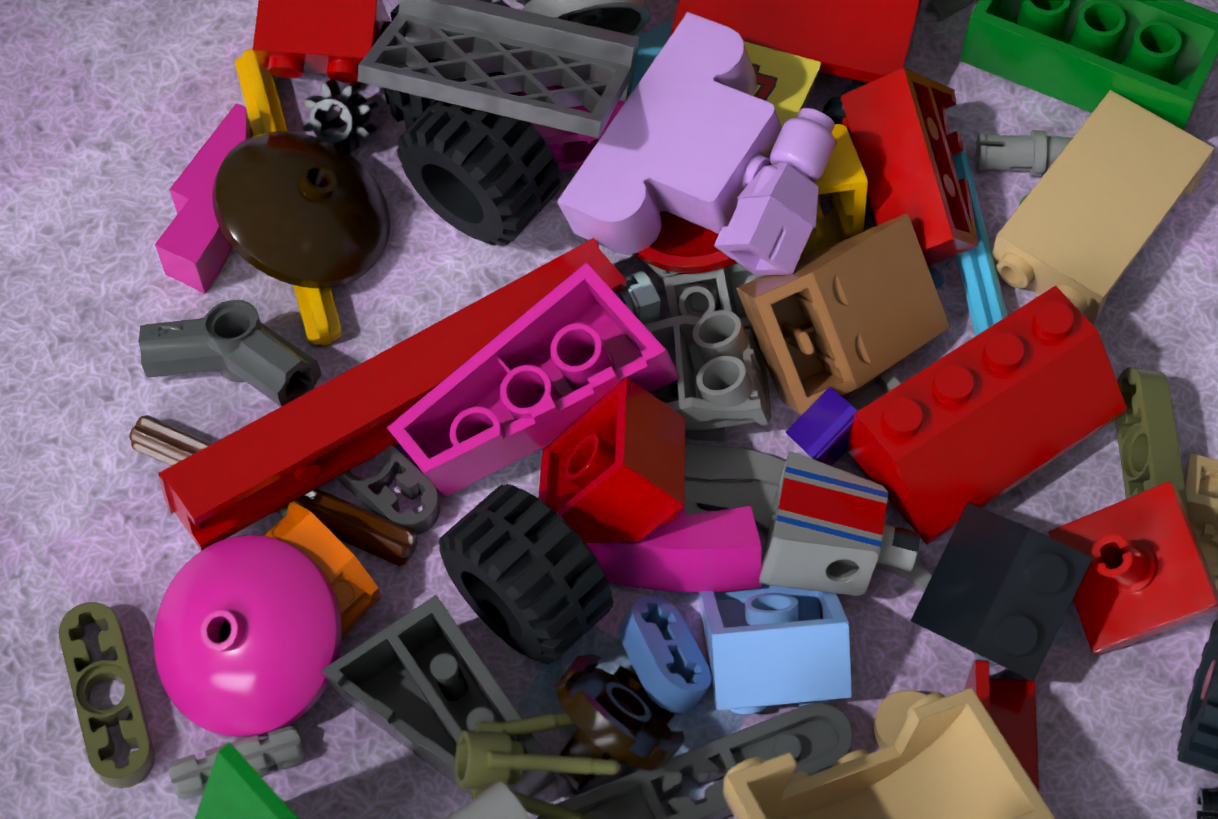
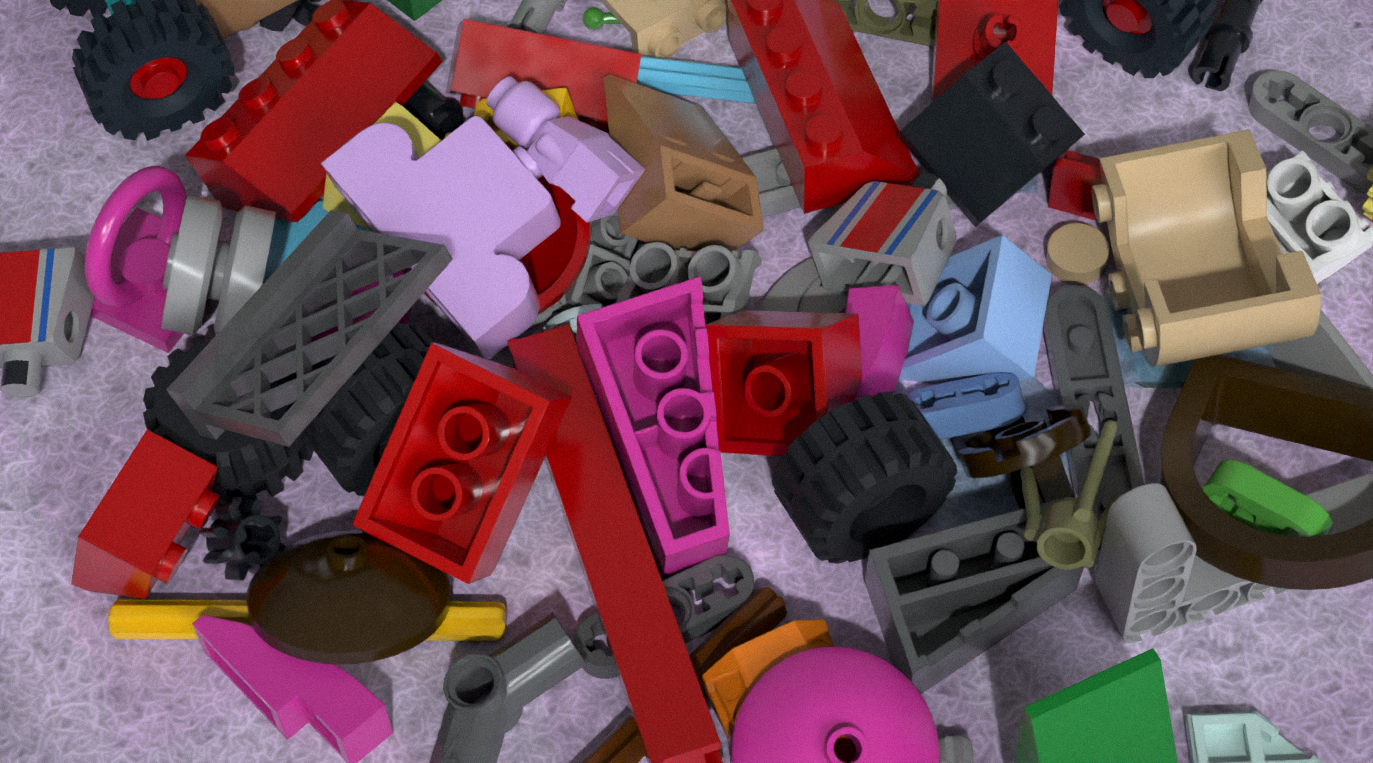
camera: 70 degrees left, 5 degrees down
(432, 237) = (461, 462): none -> red slope
(824, 428) = (787, 211): dark purple slope -> none

